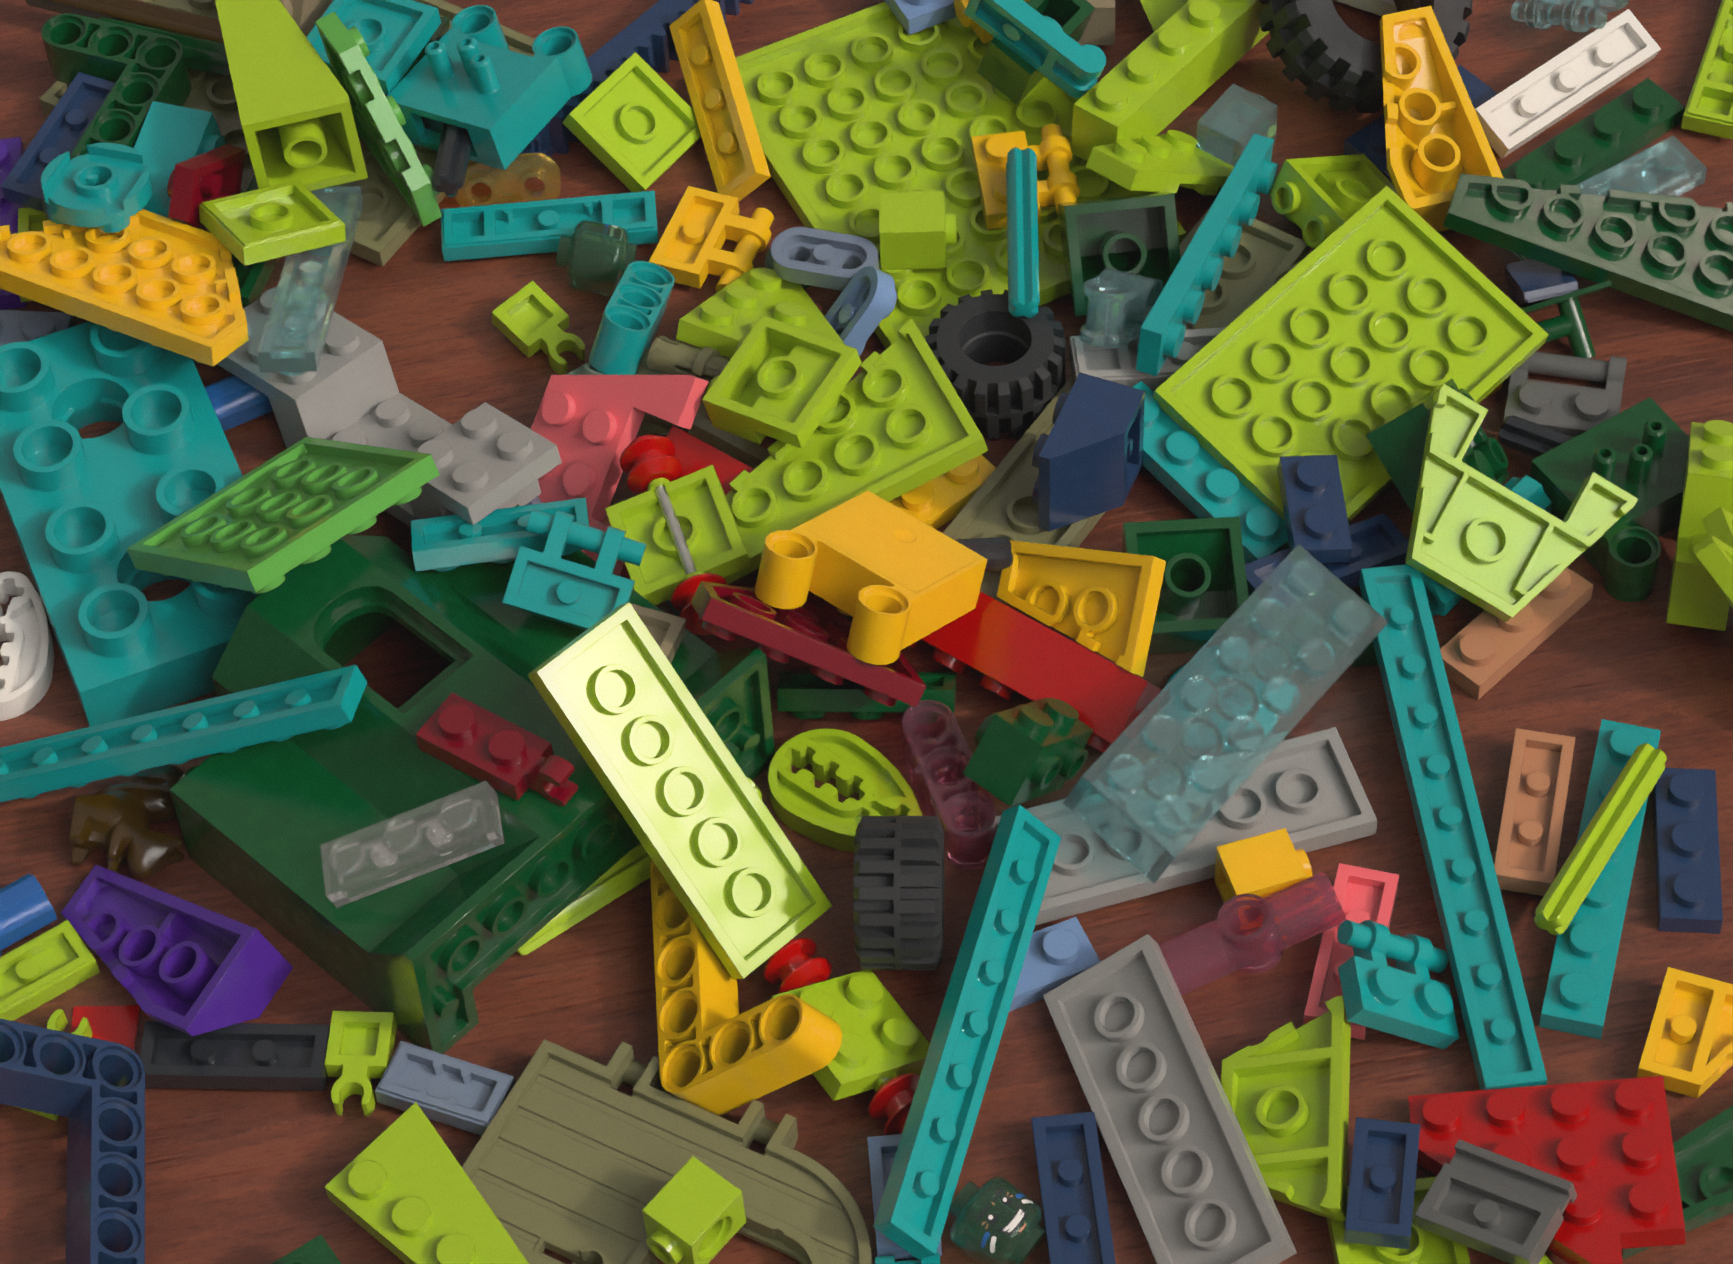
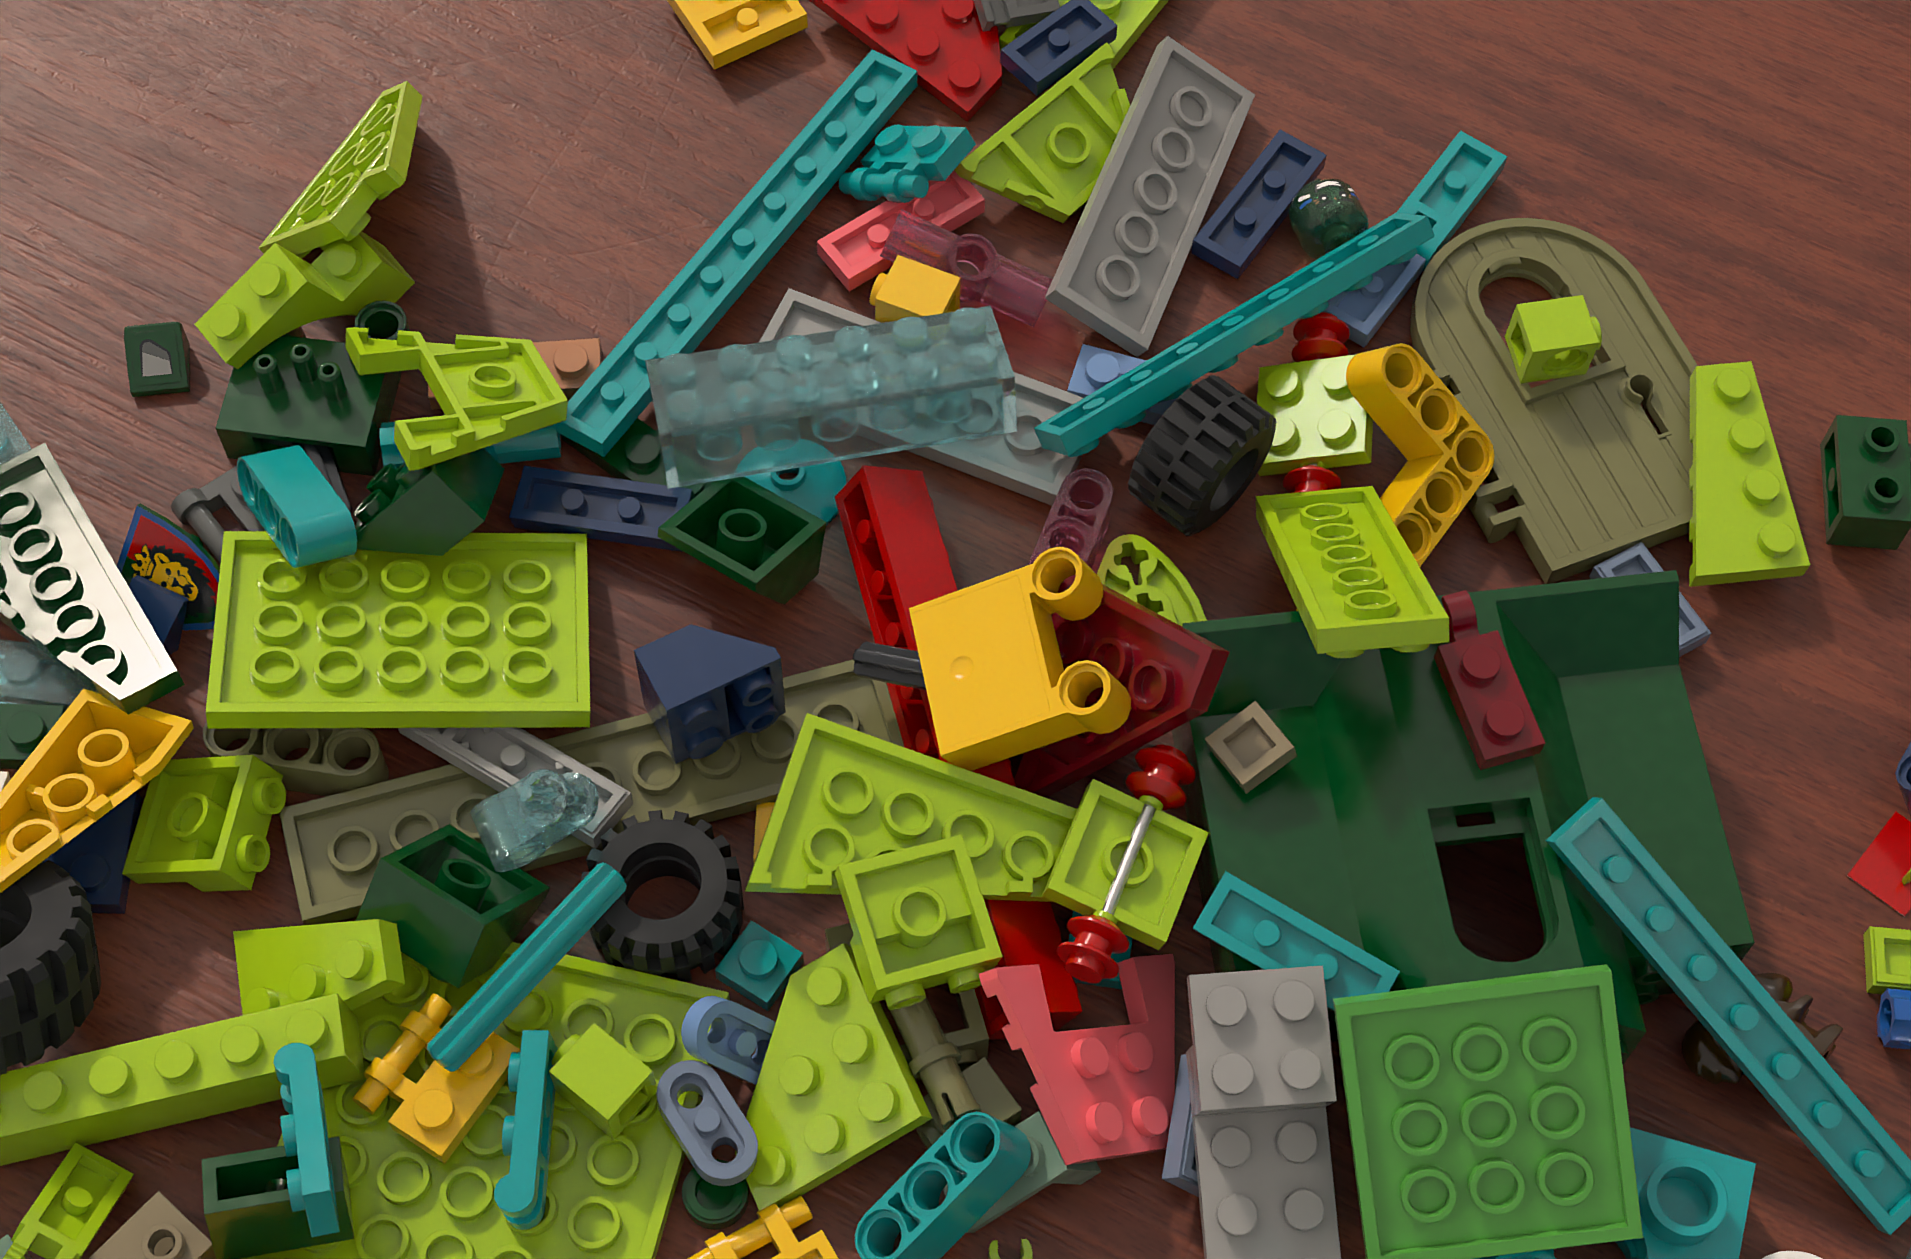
camera: 145 degrees left, 10 degrees up
(175, 956) = (1803, 862): dark purple wedge -> none
(237, 1057) = (1803, 752): black plate -> none
(357, 1051) = (1708, 675): lime plate -> none
(411, 844) = (1598, 689): clear plate -> none
(564, 589) = (1286, 832): teal plate -> none
(921, 169) = (529, 1132): none -> teal plate
(1028, 750) = (998, 497): dark green brick -> none
(1089, 595) = (831, 564): yellow wing -> none
(1203, 259) = (402, 818): teal plate -> none
(1206, 484) = (615, 631): teal plate -> none
(1233, 121) = (192, 986): clear light blue brick -> none
(1315, 506) = (570, 534): dark blue plate -> none
(1517, 373) = (296, 506): none -> teal beam
(1533, 811) = (666, 225): nougat plate -> none
(1589, 946) = (670, 162): teal plate -> none
(1600, 839) = (660, 149): lime axle -> none
(1687, 851) = (595, 136): dark blue plate -> none

